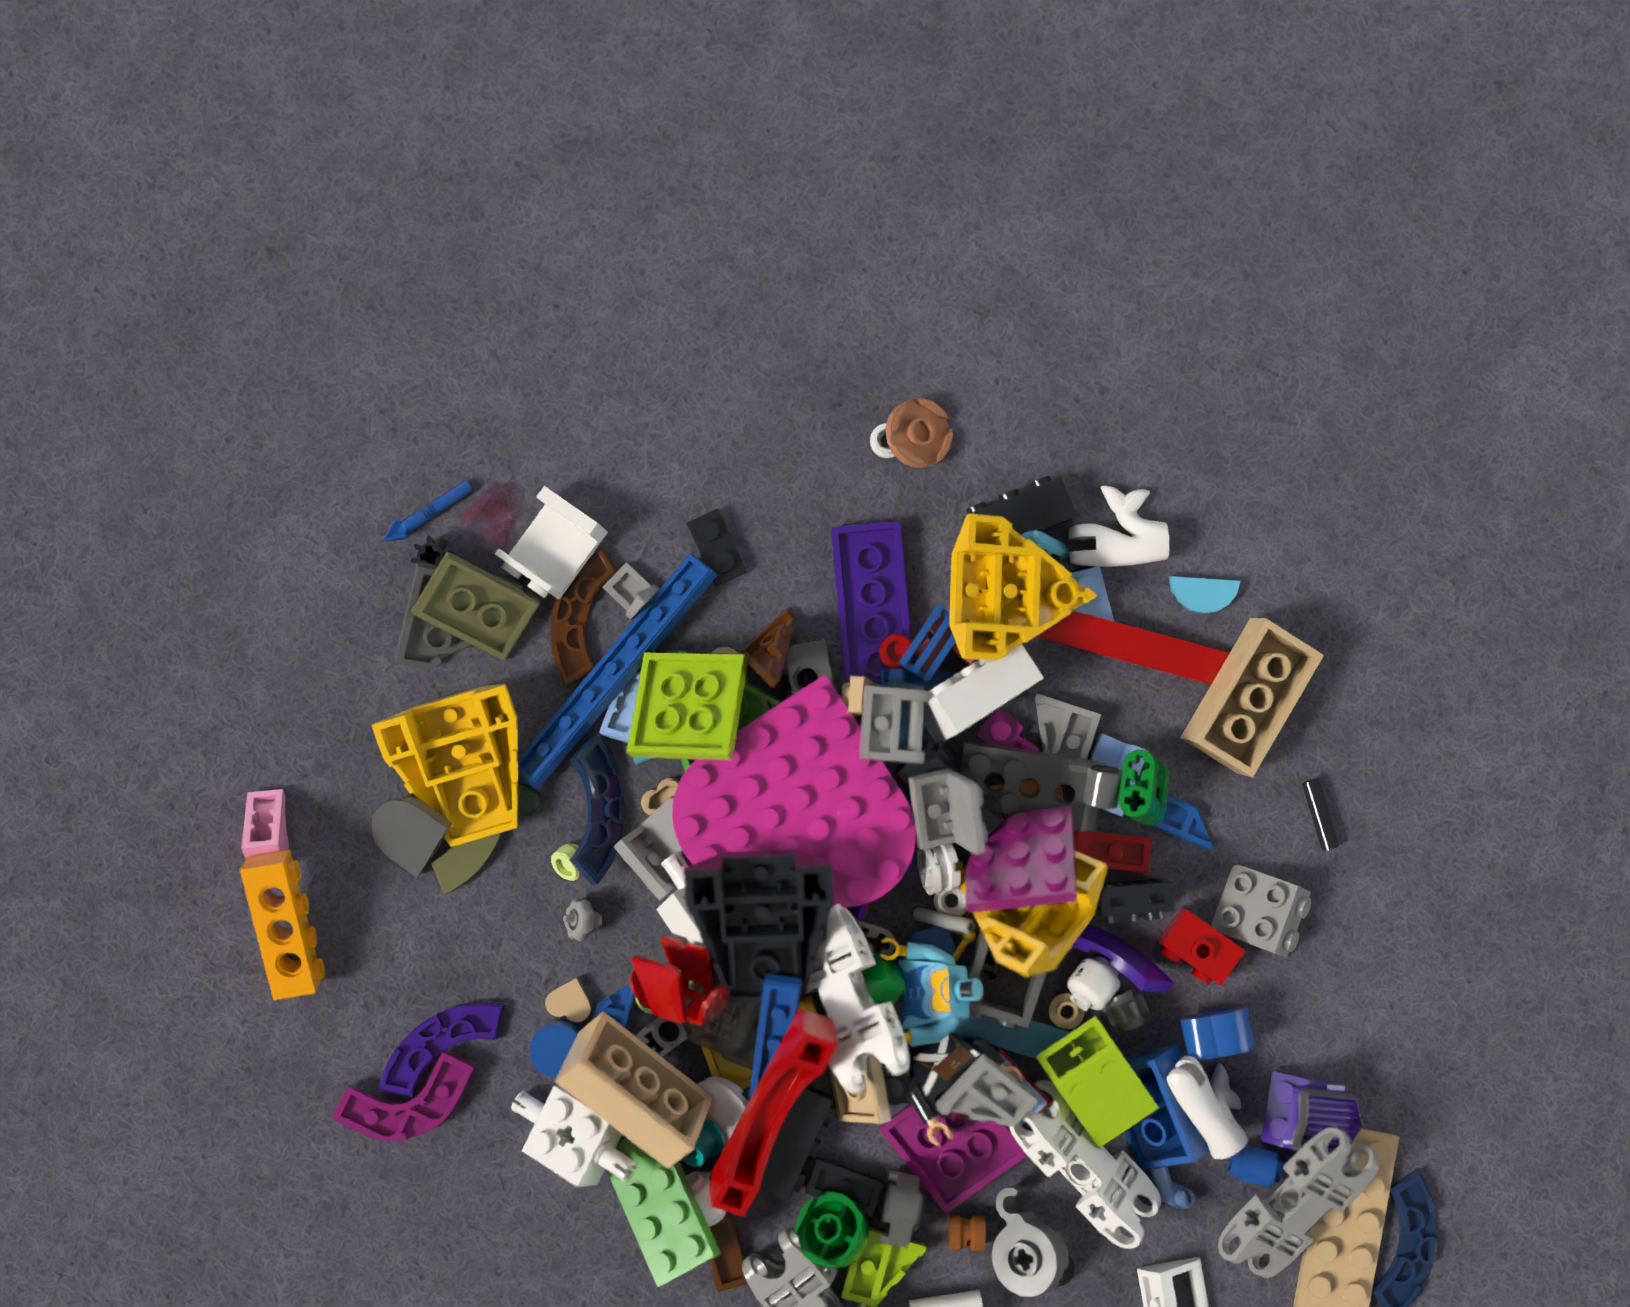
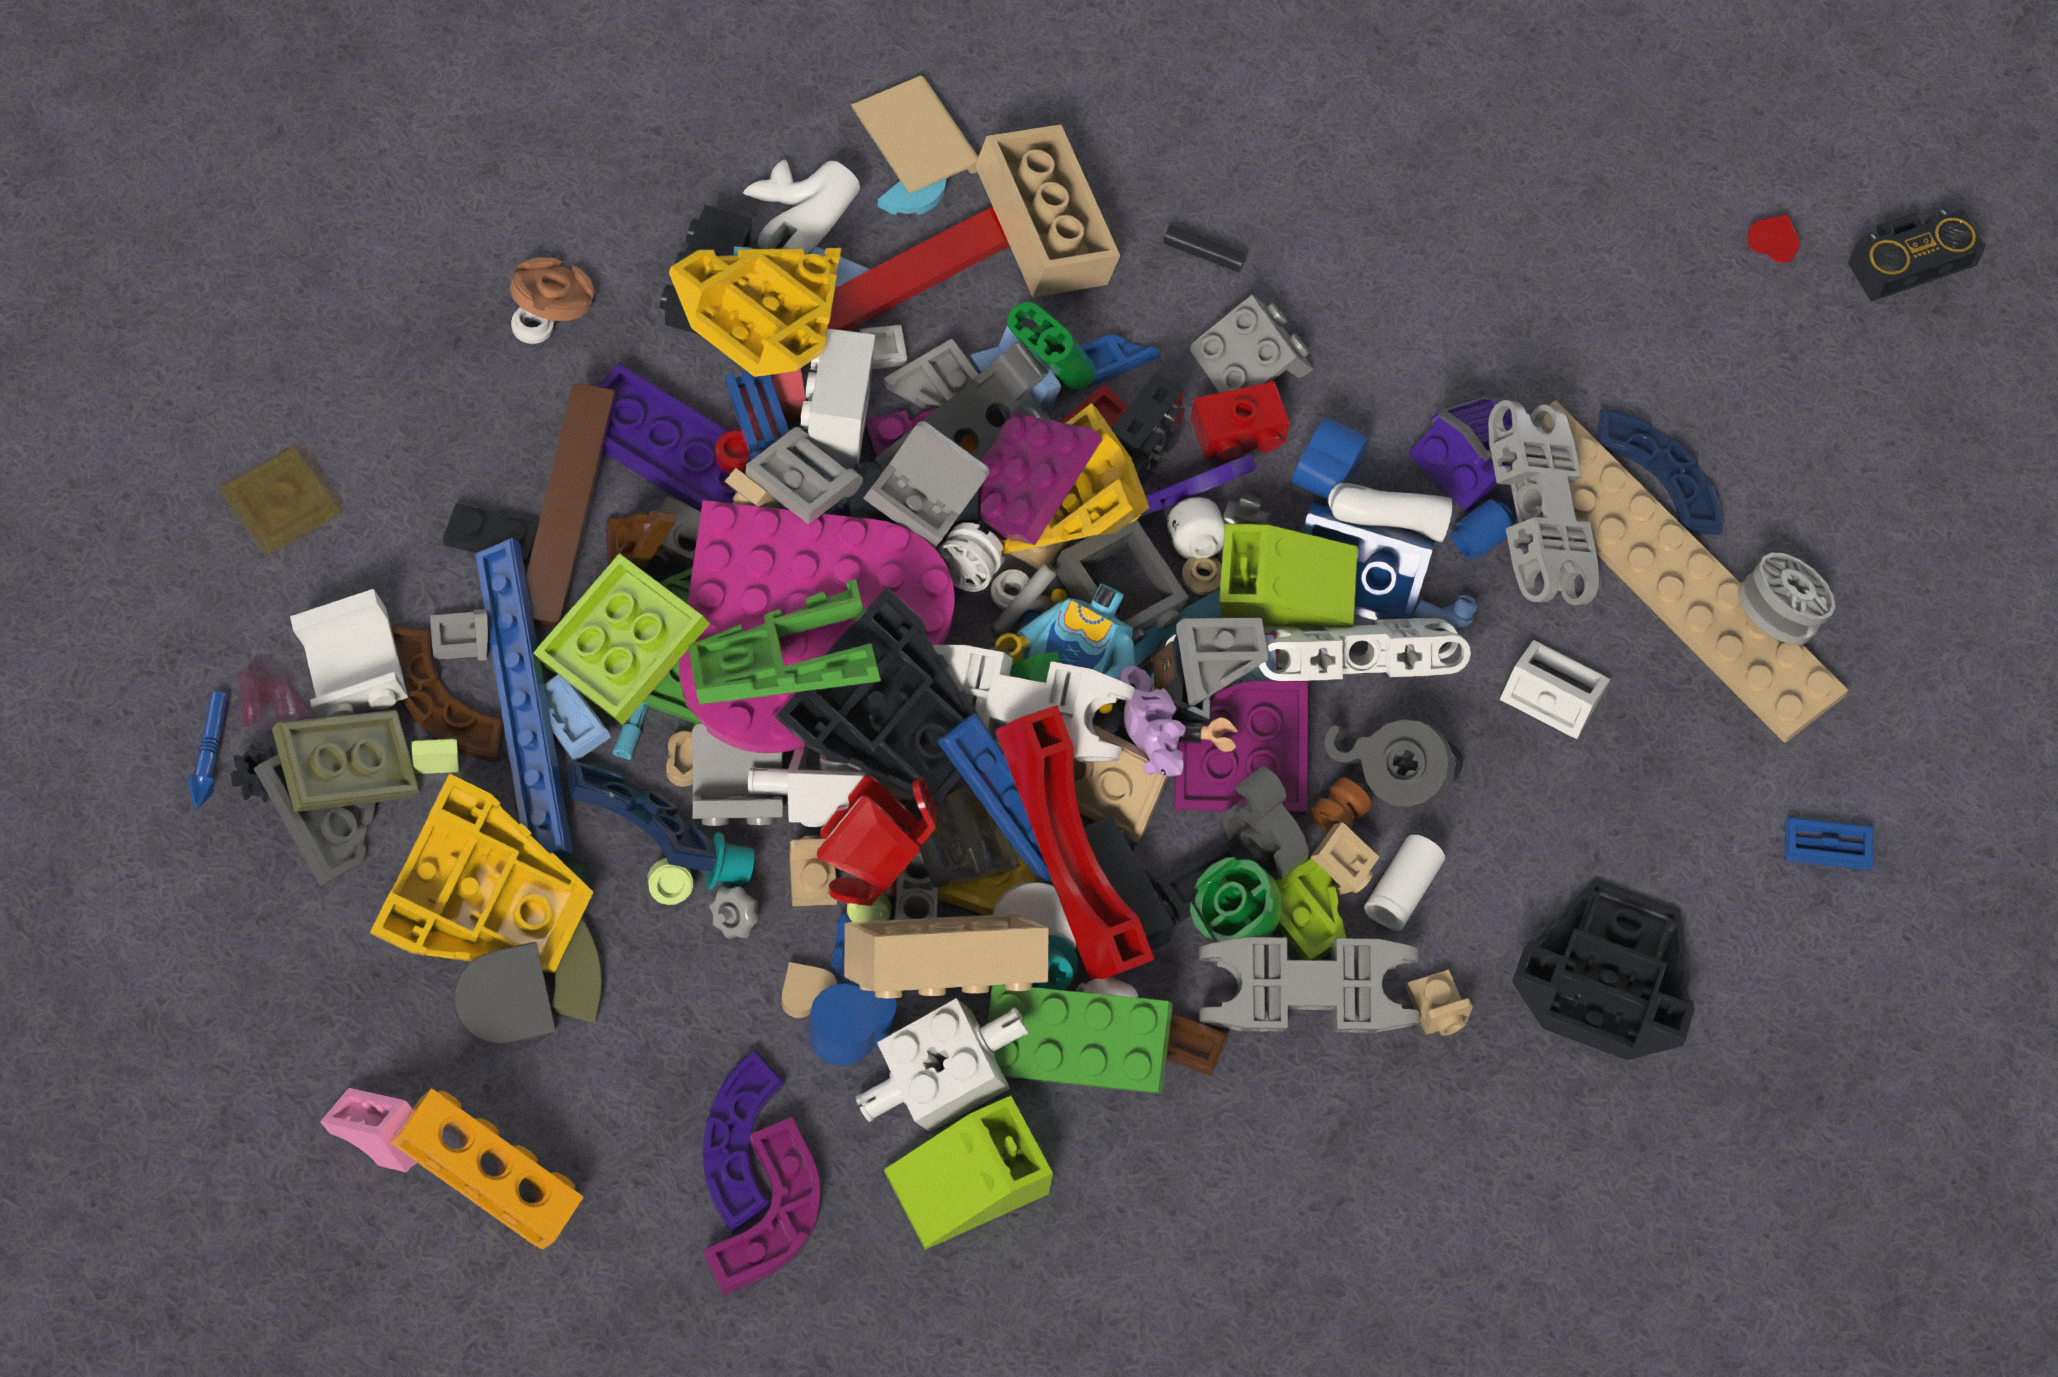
camera: 60 degrees left, 25 degrees down
(522, 1205) = (970, 1173): none -> lime slope
(532, 651) = (435, 756): none -> yellowish green tile
(610, 890) = (732, 864): none -> teal piece
(630, 400) = (280, 501): none -> clear yellow tile
(646, 939) = (809, 874): none -> tan bracket
(714, 809) = (752, 663): none -> bright green wing
(773, 577) = (567, 501): none -> reddish brown tile
(899, 1094) = (1151, 724): none -> lavender animal
(926, 1269) = (1345, 859): none -> tan bracket
(1062, 671) = (888, 346): none -> white tile
(1244, 558) = (916, 134): none -> tan piece

